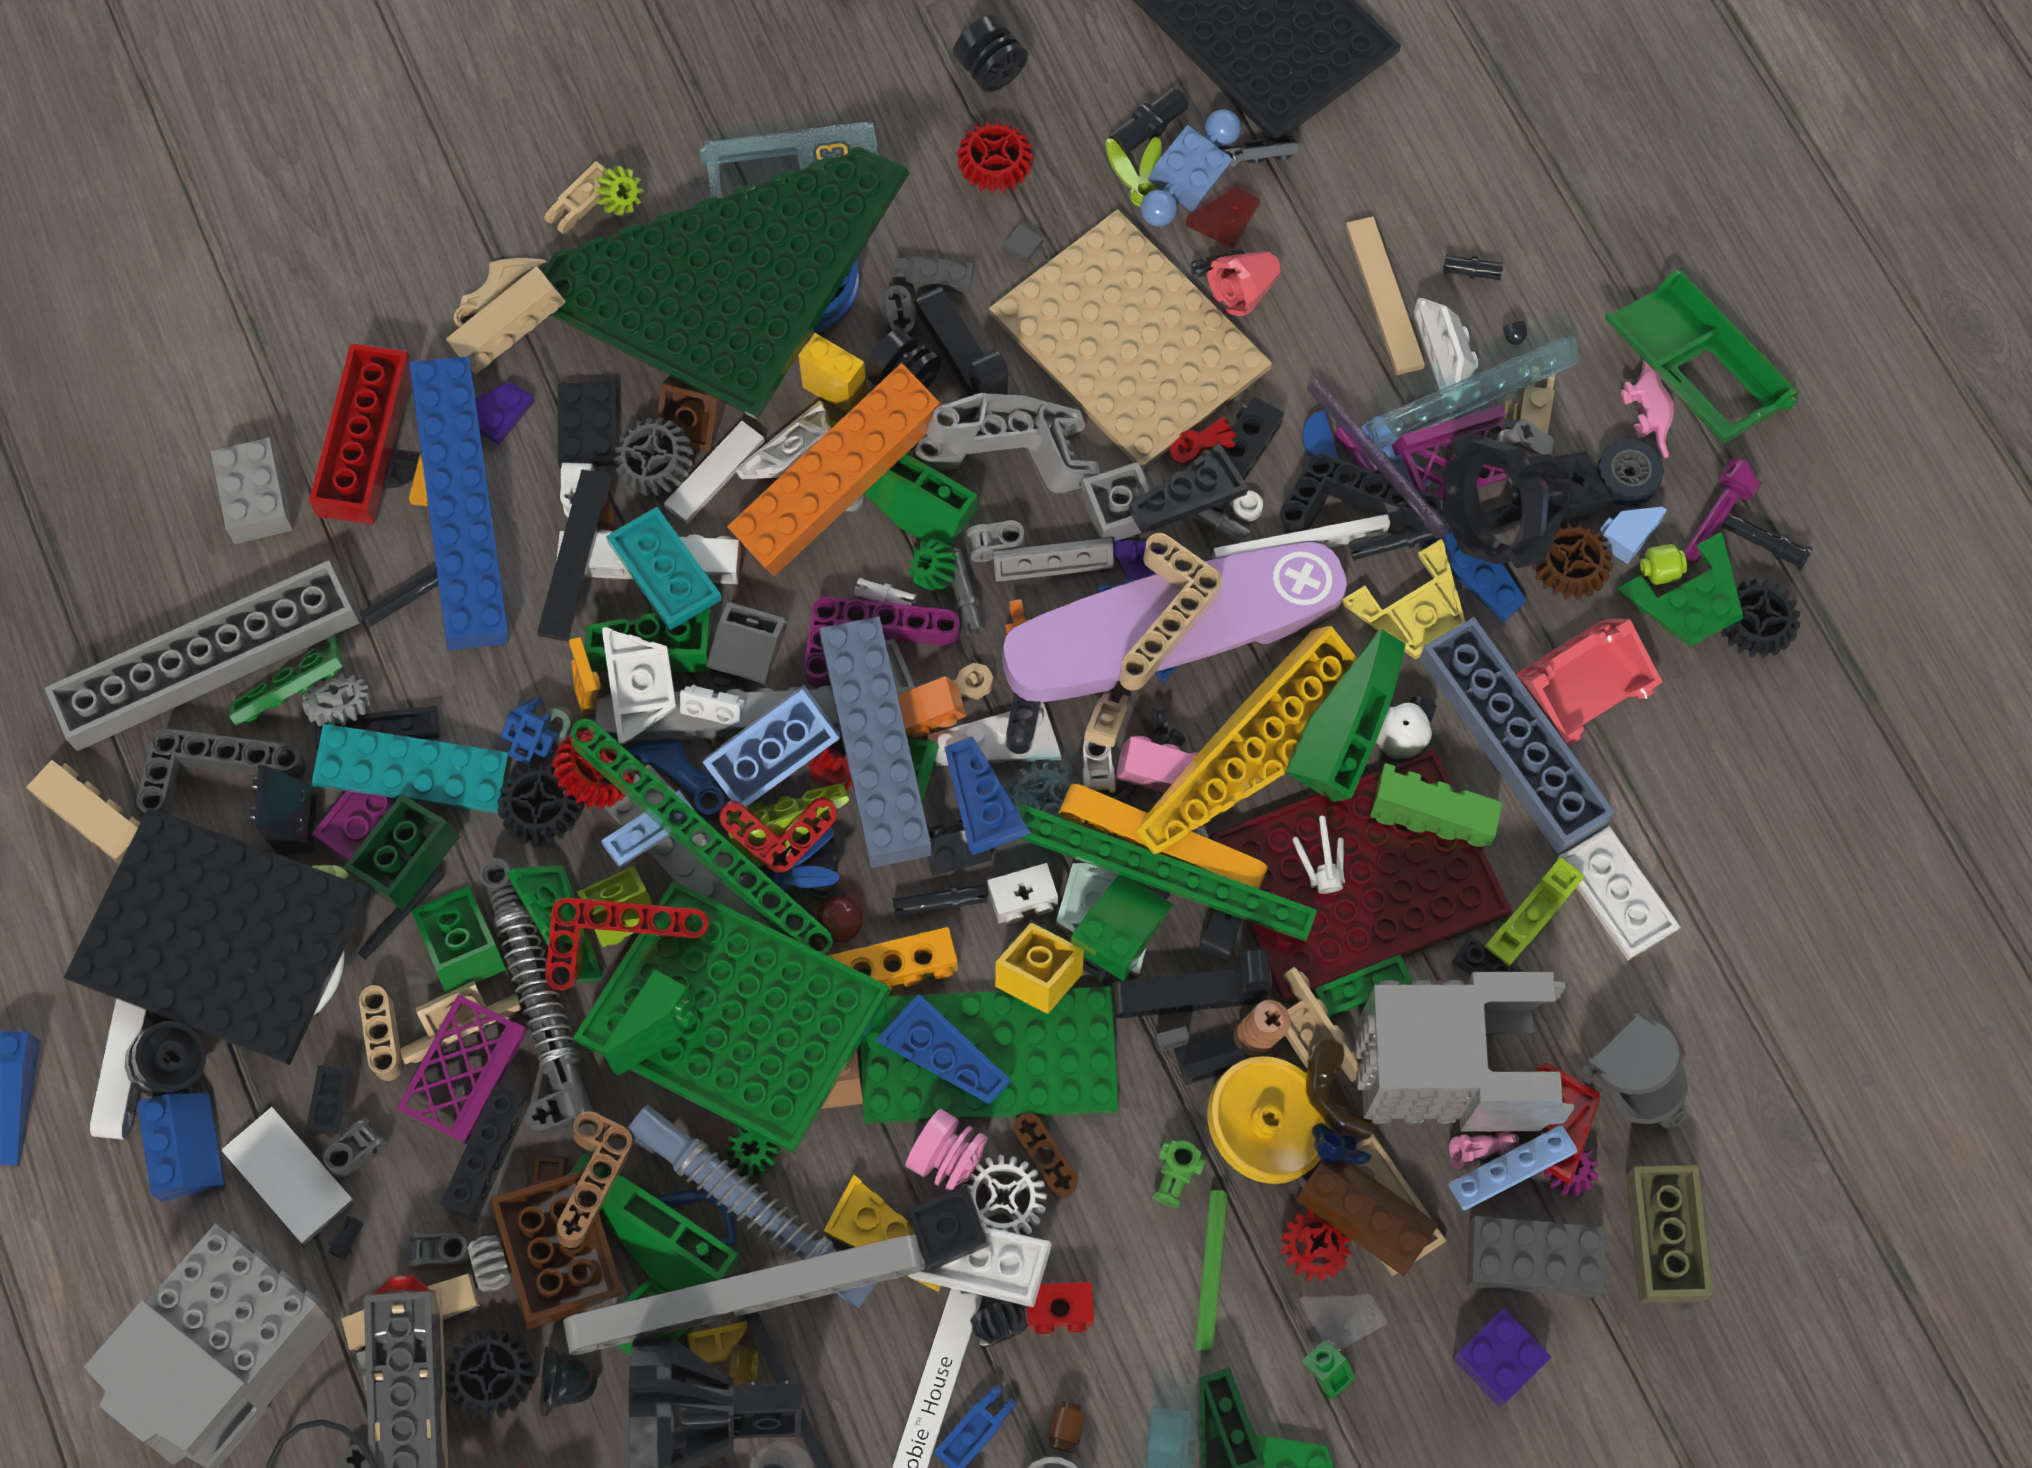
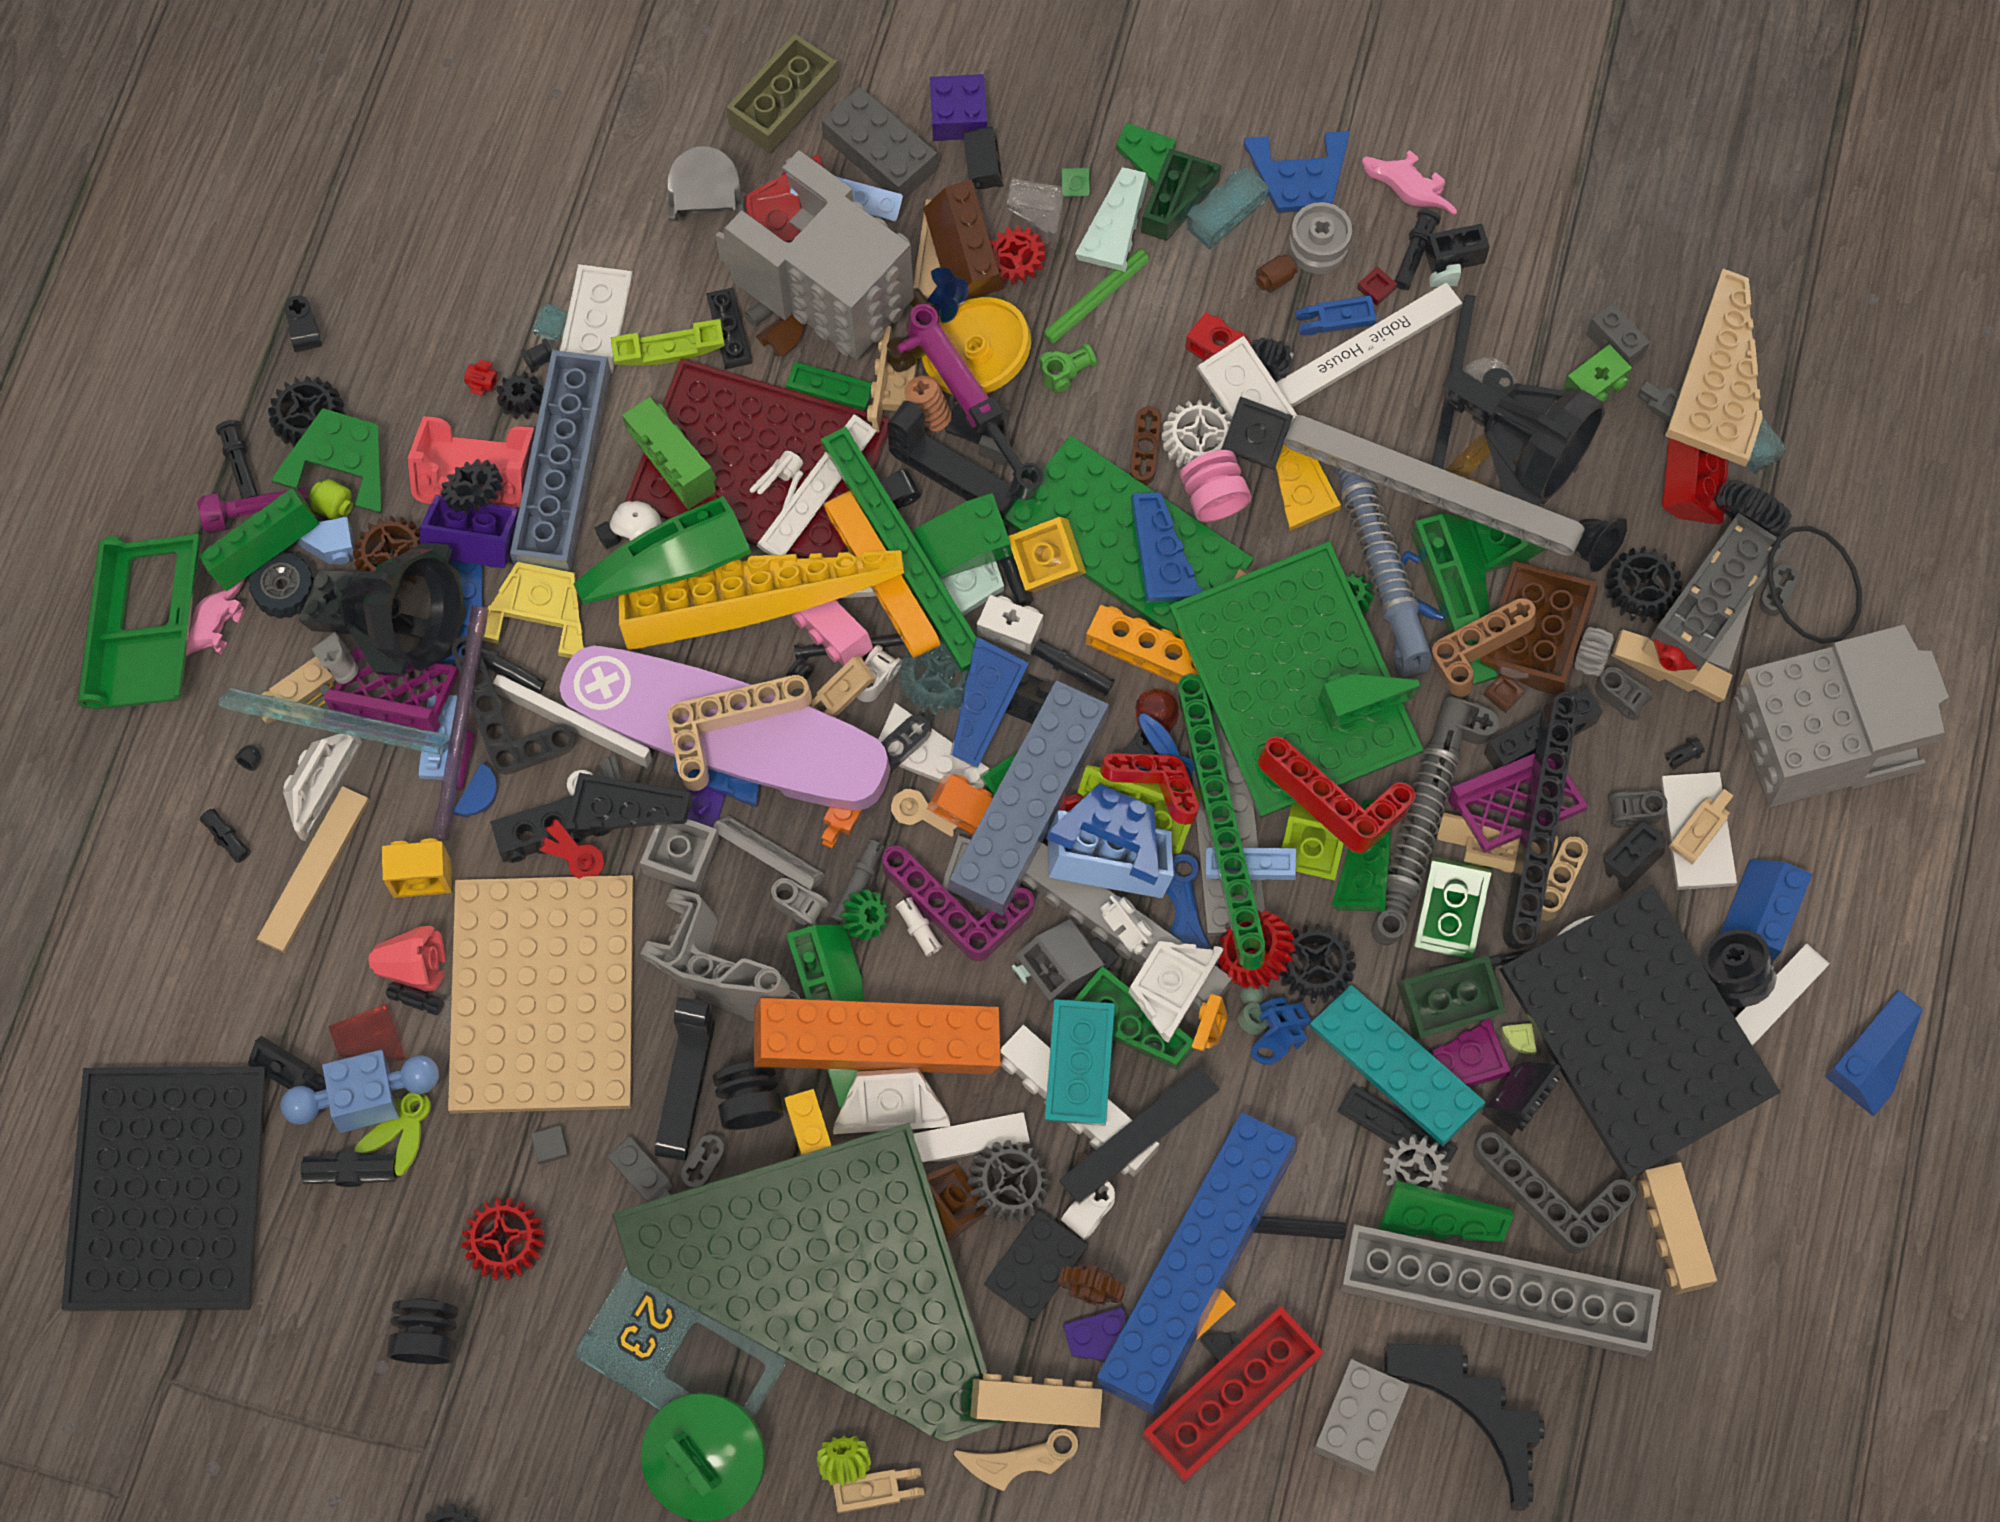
camera: 140 degrees left, 0 degrees up
(208, 569) = (1509, 1431): none -> black arch
(281, 1170) = (1701, 827): none -> tan hinge
(435, 1059) = (1534, 832): none -> black beam
(528, 426) = (1091, 1284): none -> reddish brown gear
(719, 117) = (703, 1456): none -> green bracket
(785, 772) = (1117, 820): none -> wing
(1208, 1047) = (981, 411): none -> magenta piece
(1253, 1346) = (1113, 226): none -> light aqua wing
(1286, 872) = (810, 496): none -> white tile
(1303, 339) = (417, 868): none -> yellow brick
(1432, 1325) = (983, 158): none -> black hinge
(1528, 613) = (475, 537): none -> dark purple brick
(1557, 640) = (472, 486): none -> black gear
(1616, 764) = (510, 392): none -> black gear
(1629, 816) = (537, 355): none -> black bush
(1650, 856) = (550, 322): none -> clear light blue tile
(1653, 757) = (481, 377): none -> red gear
(1681, 480) = (259, 539): none -> green slope
(1839, 684) = (302, 326): none -> black piece

